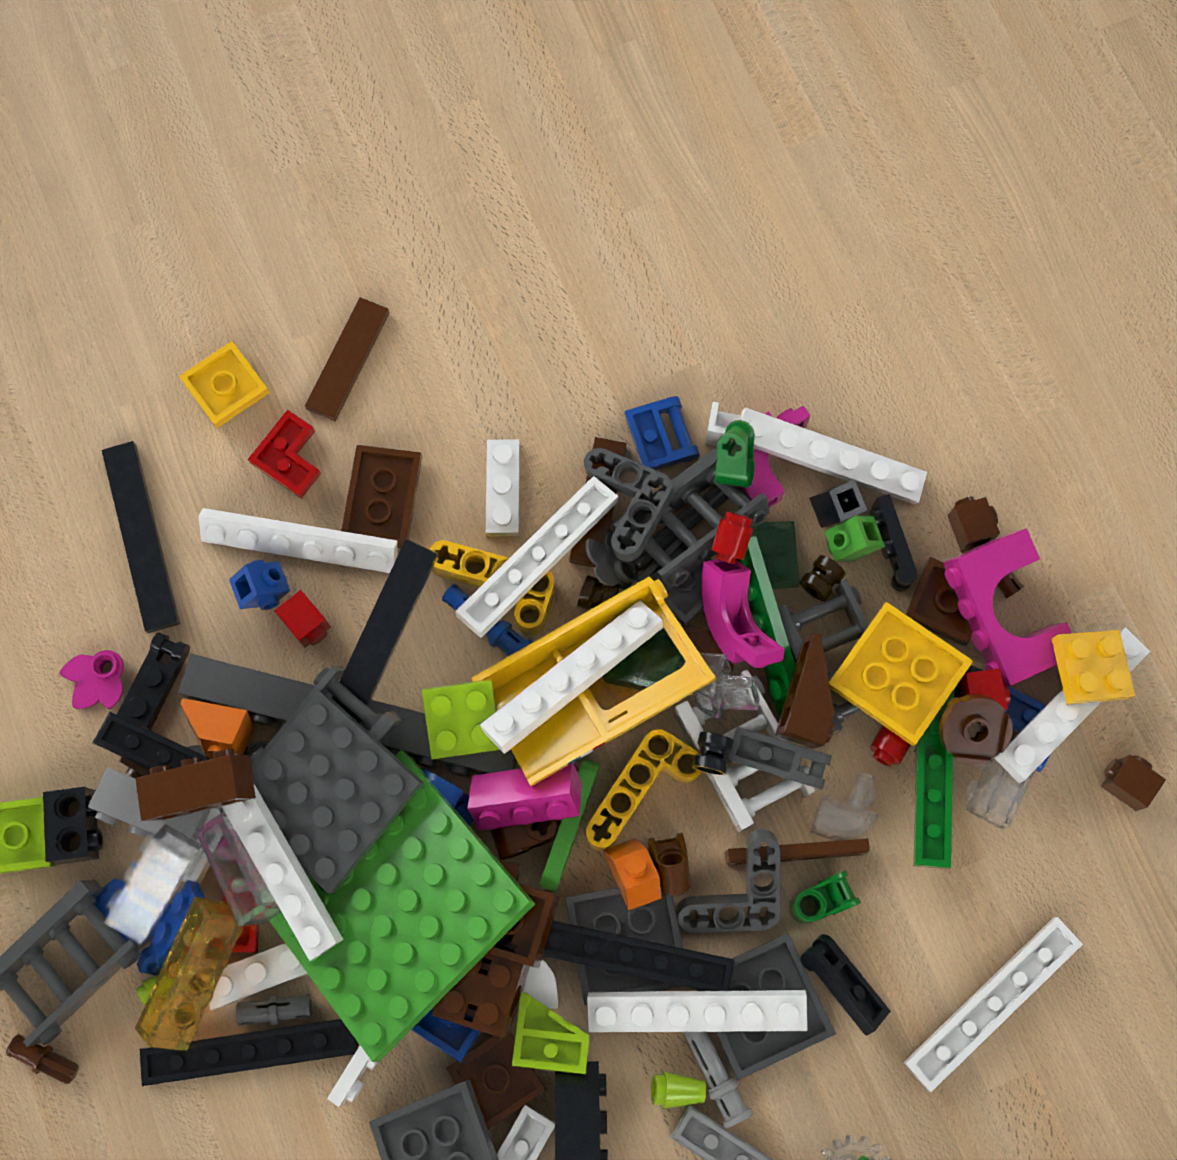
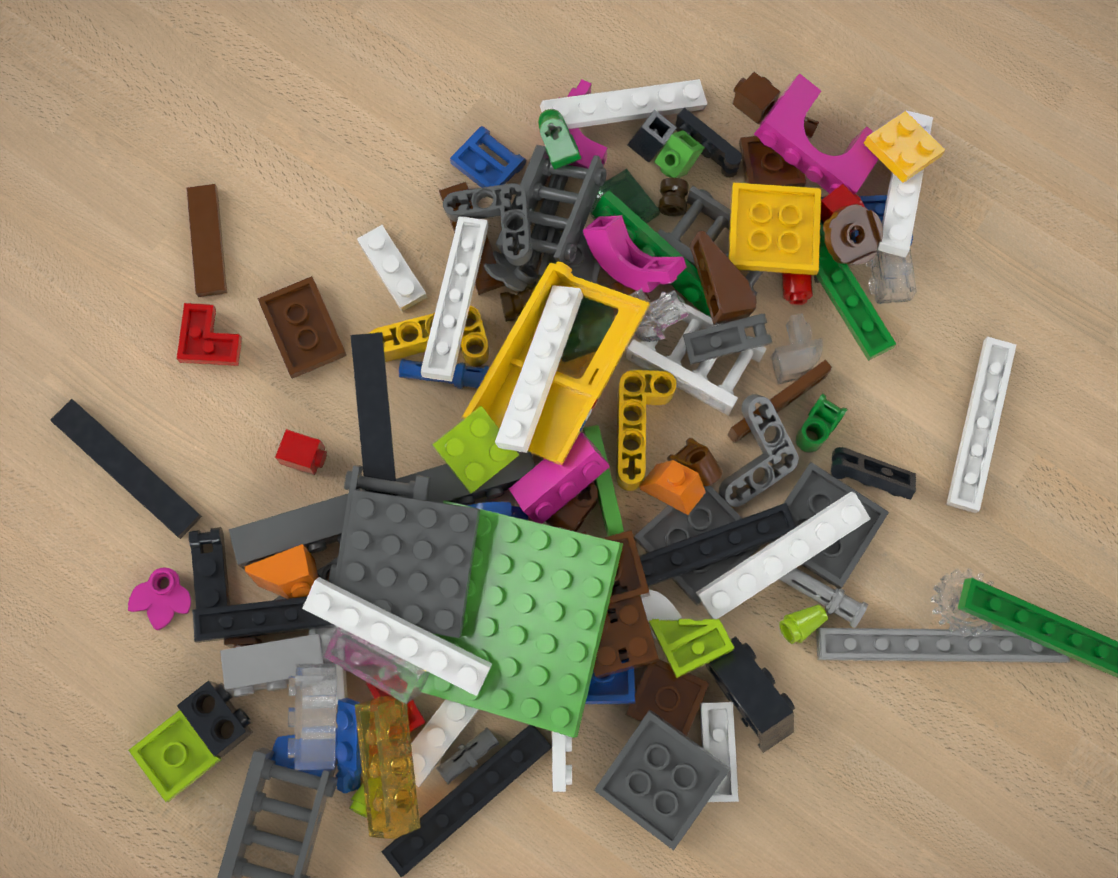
camera: 35 degrees left, 0 degrees up
(195, 786) = (304, 617): reddish brown brick -> none
(224, 384) = (119, 313): yellow plate -> none
(259, 585) = (249, 447): blue brick -> none
(297, 540) = (256, 397): white plate -> none
(712, 753) = (677, 363): black wheel -> none
(717, 424) = (527, 131): white panel -> none
(732, 537) = (594, 198): red brick -> none
(1132, 781) = (978, 213): reddish brown brick -> none

